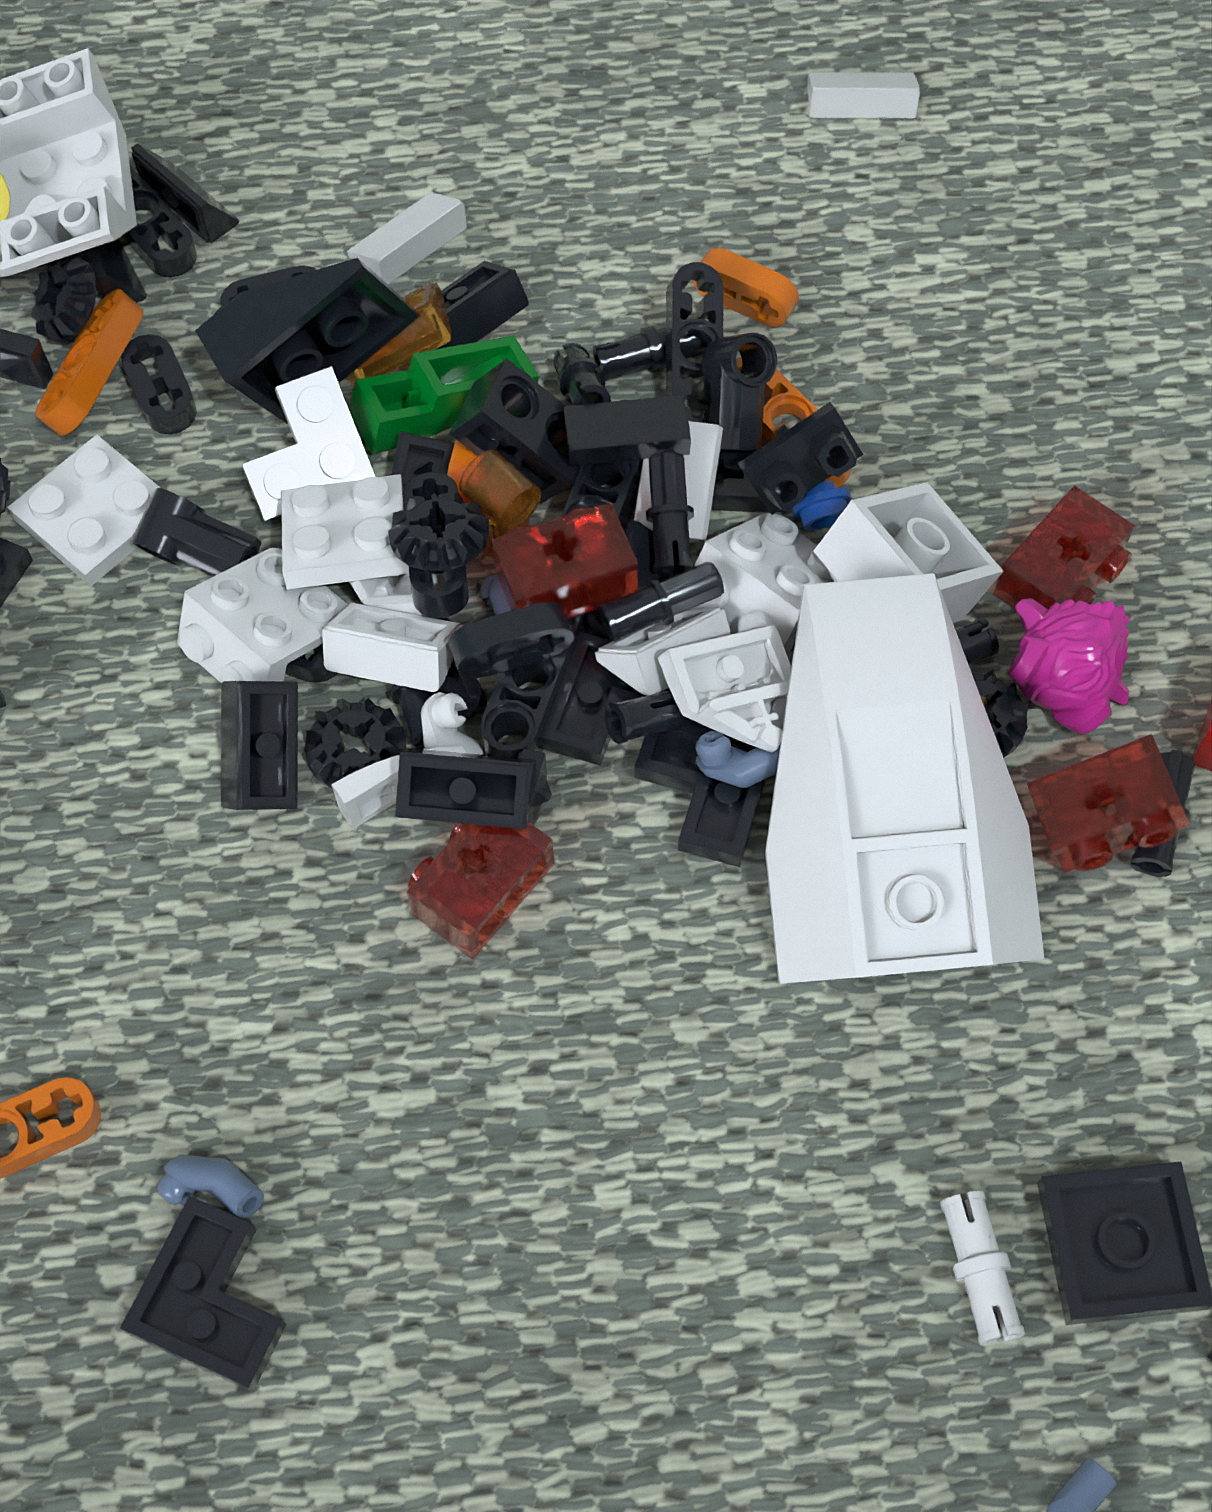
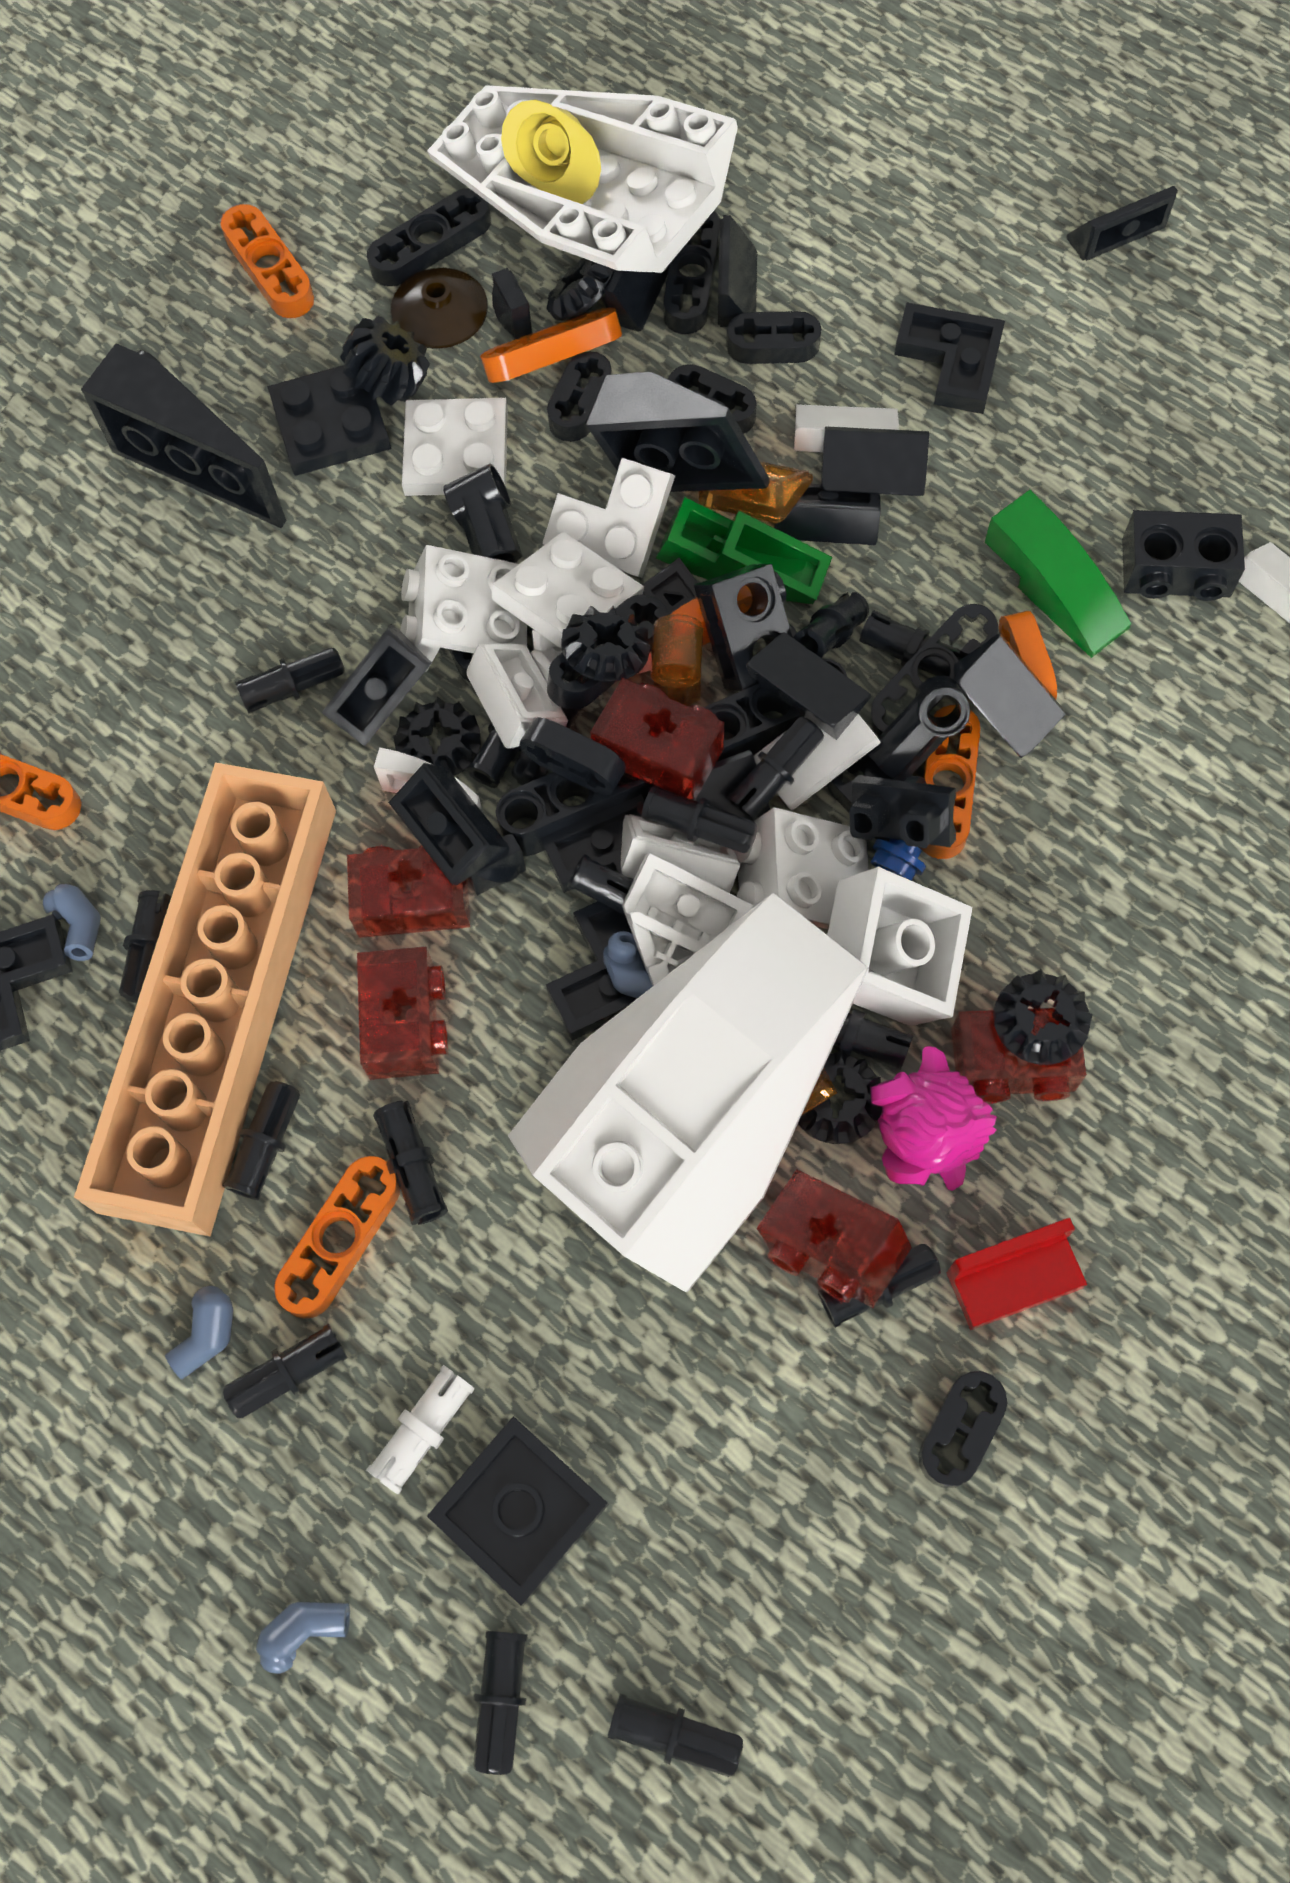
camera: 50 degrees right, 5 degrees up
(169, 813) = (289, 679): none -> black axle
(268, 214) = (773, 337): none -> black beam
(303, 1140) = (142, 942): none -> black axle
(427, 1122) = (208, 1001): none -> light nougat brick
(432, 105) = (960, 342): none -> black plate
(441, 723) = (482, 775): white arm -> none
(465, 239) = (874, 461): none -> black slope
(592, 1189) = (262, 1140): none -> black axle
(601, 1008) = (386, 984): none -> clear red brick
(694, 209) = (1057, 573): none -> green slope
(732, 1080) = (410, 1162): none -> black pin
(733, 1381) = (209, 1331): none -> sand blue arm
(742, 1252) = (300, 1267): none -> orange beam
(765, 125) = (1183, 545): none -> black brick
(779, 313) = (1008, 694): none -> slope
(830, 1342) = (283, 1372): none -> black axle
(1055, 529) = (1054, 1042): none -> black gear

